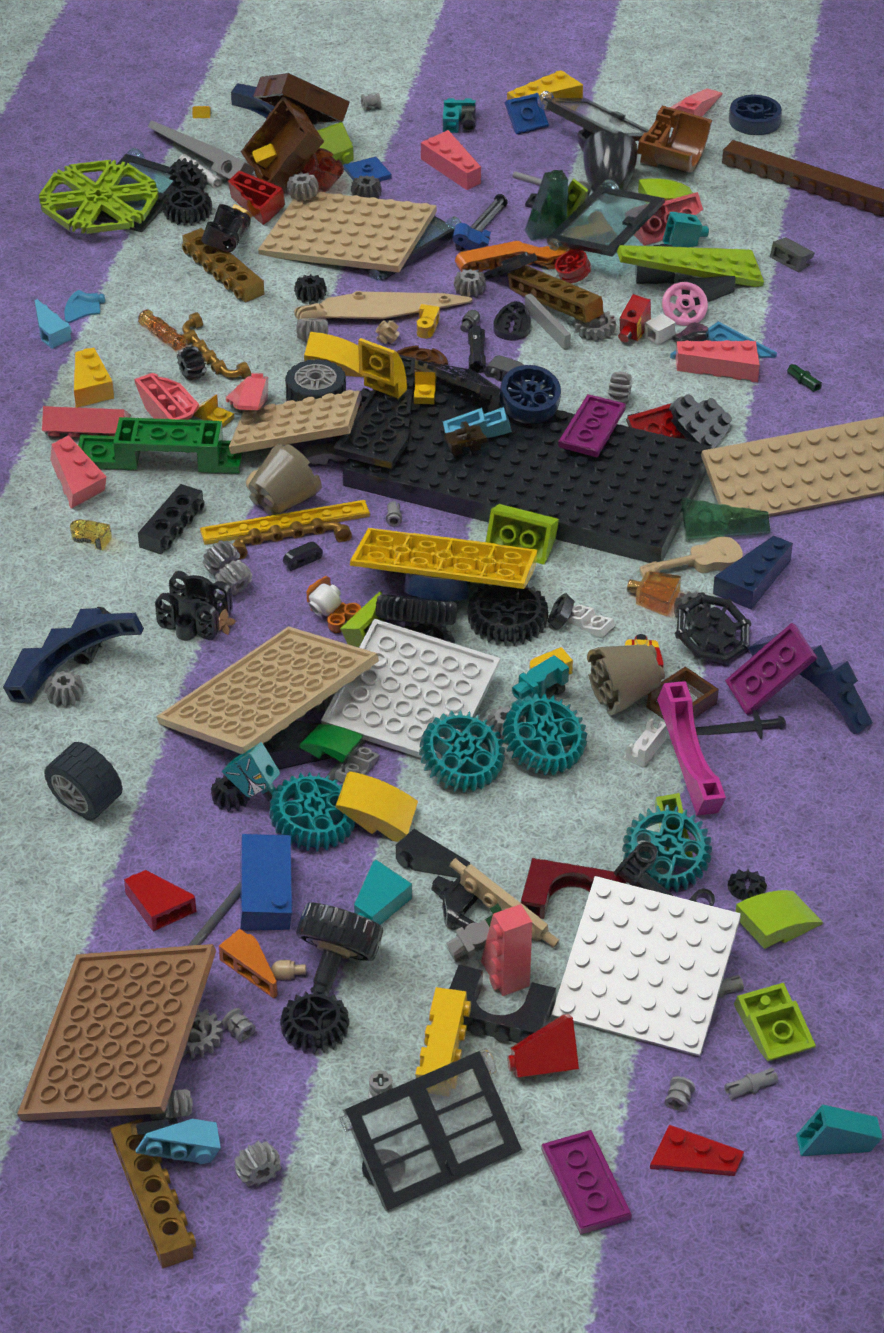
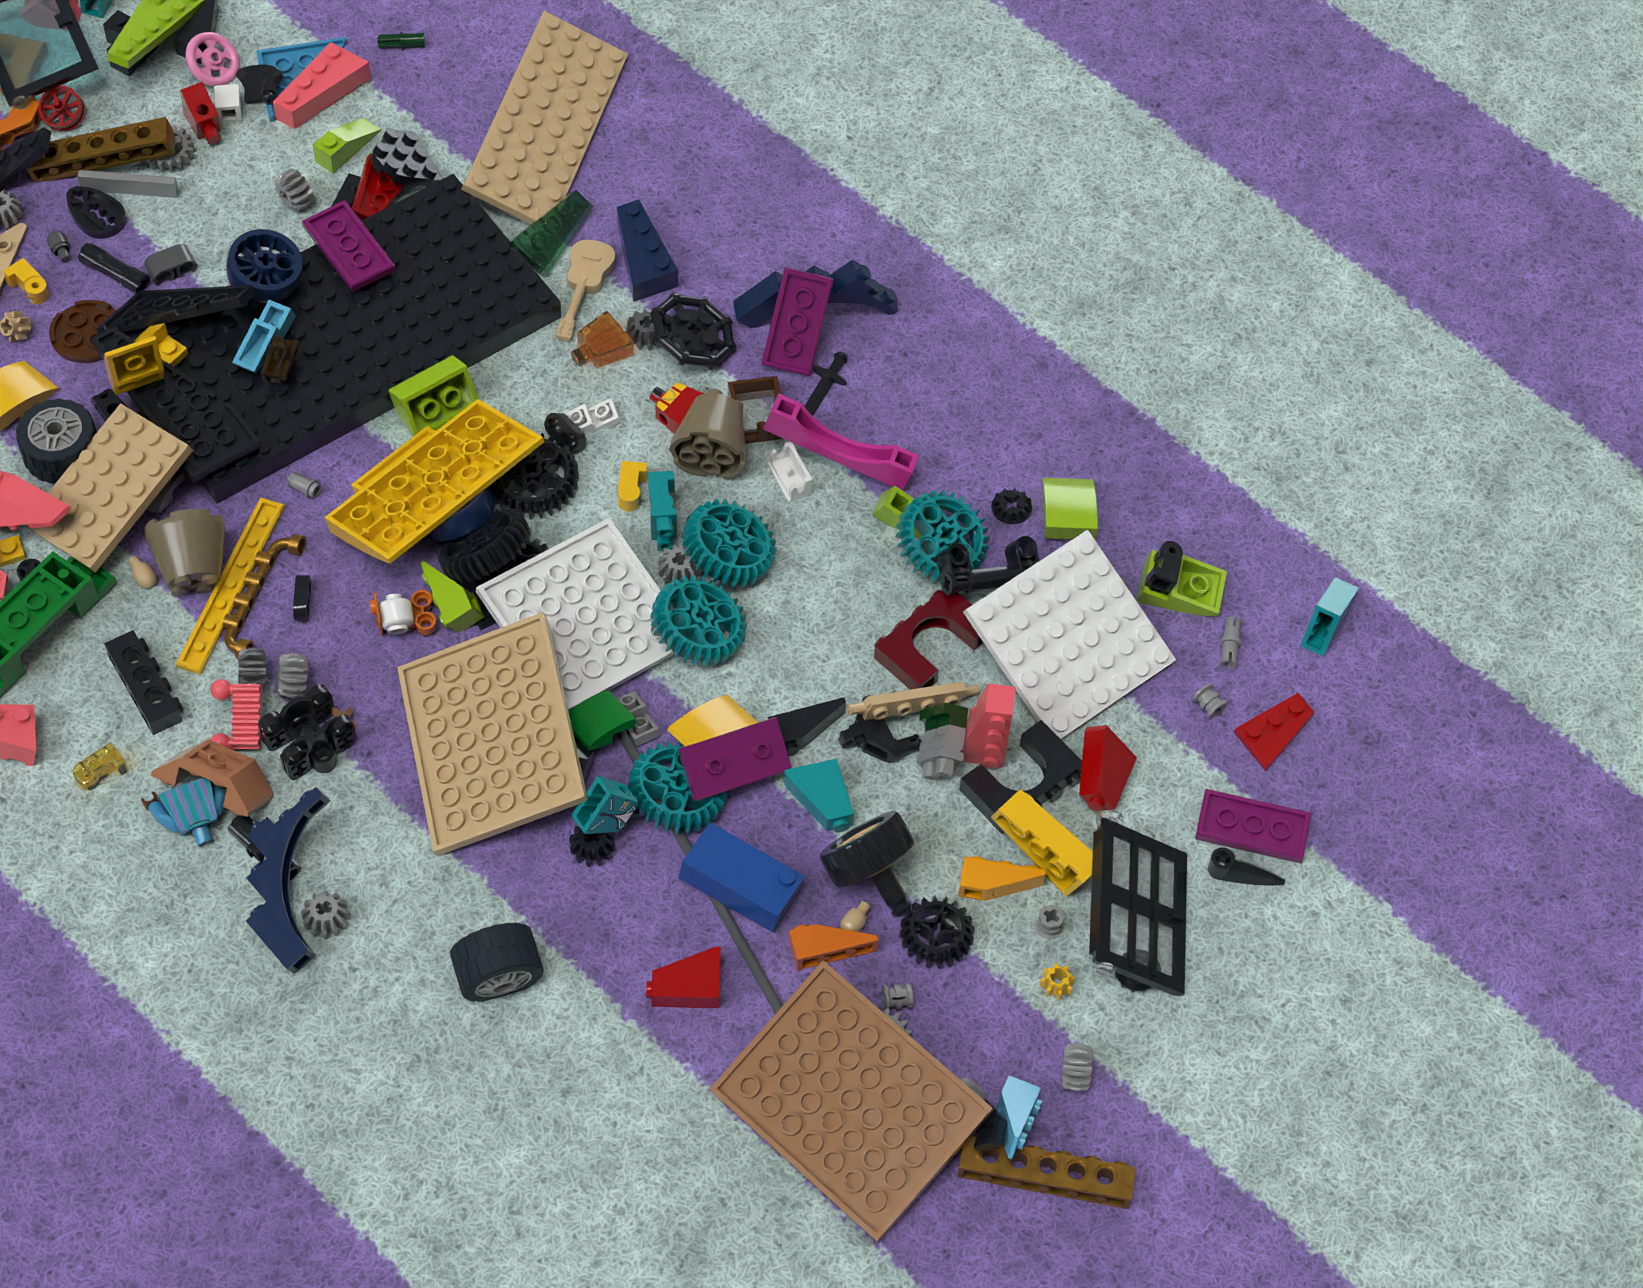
camera: 60 degrees left, 15 degrees up
(95, 585) = (189, 808): none -> dark azure torso
(128, 585) = (226, 768): none -> nougat slope
(192, 565) = (246, 713): none -> coral gear
(328, 1117) = (1053, 988): none -> yellow gear
(355, 821) = (734, 758): none -> magenta plate
(387, 1032) = (992, 879): none -> light orange slope
(533, 1191) = (1239, 870): none -> black piece
(679, 386) = (342, 143): none -> lime slope
(770, 995) = (1166, 572): none -> black leg

